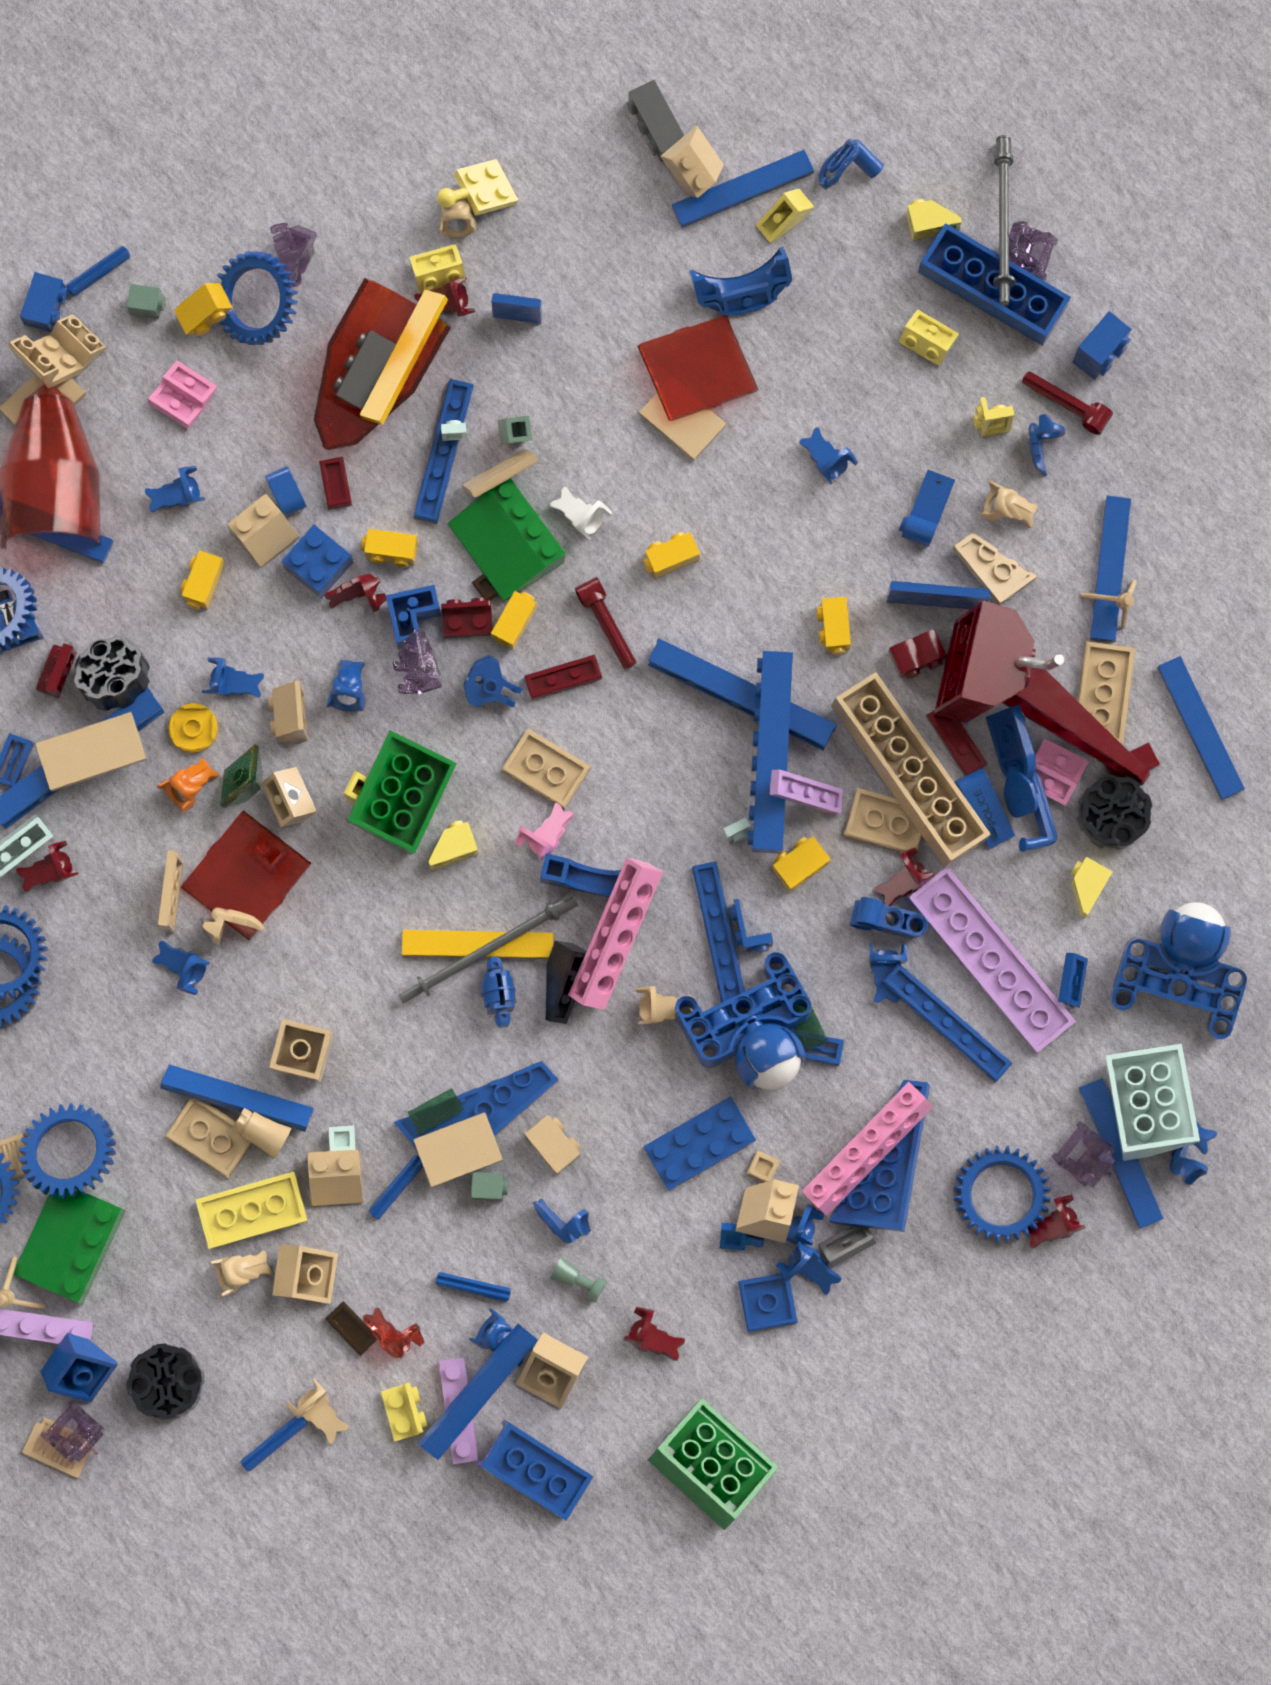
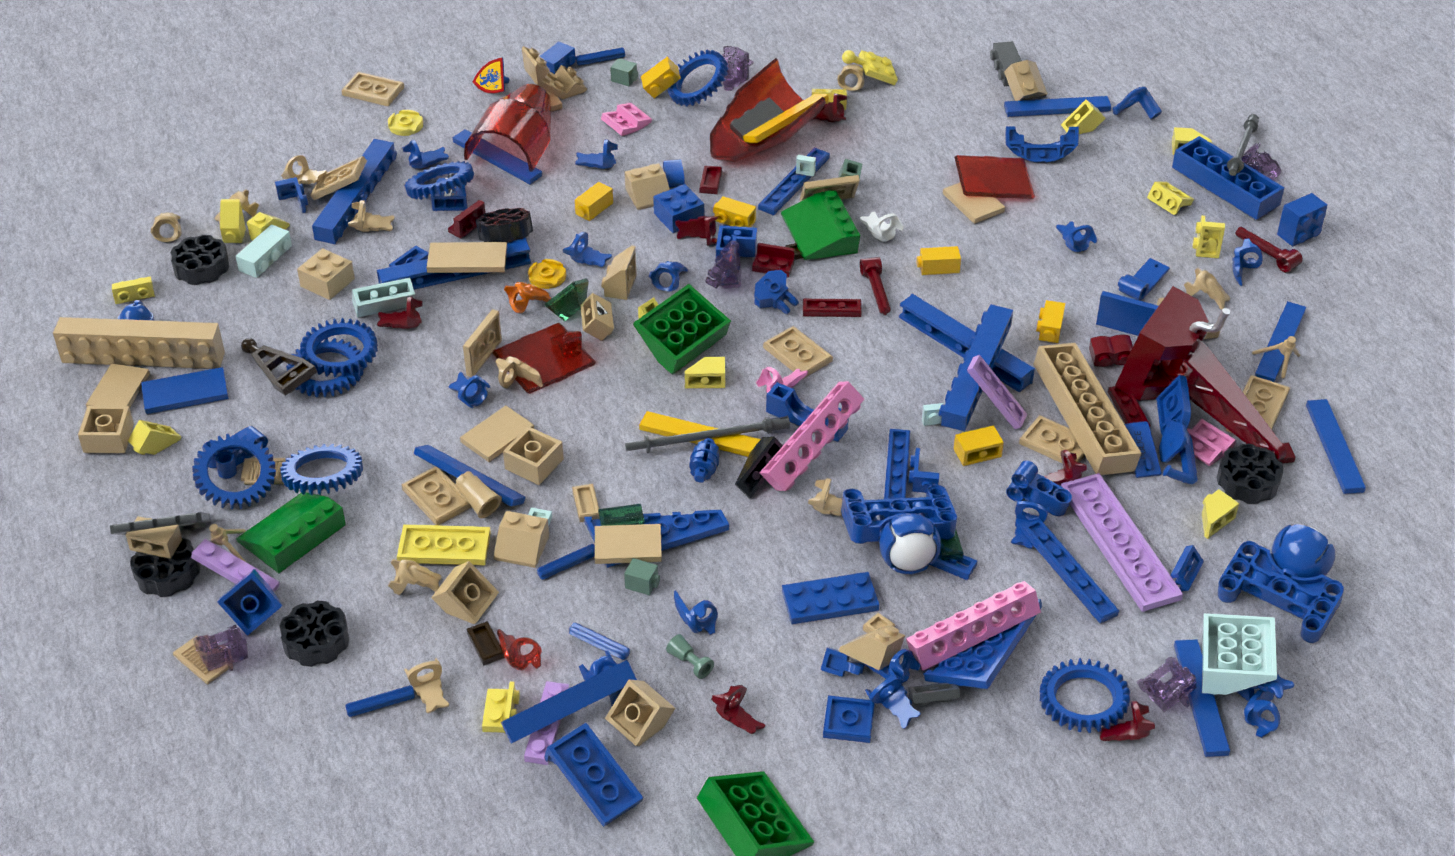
camera: 20 degrees right, 35 degrees down
(241, 1019) = (495, 433): none -> tan tile
(384, 1092) = (585, 501): none -> tan tile
(514, 619) = (807, 265): yellow brick -> none
(516, 308) = (875, 118): blue tile -> none
(553, 1144) = (707, 564): tan brick -> none

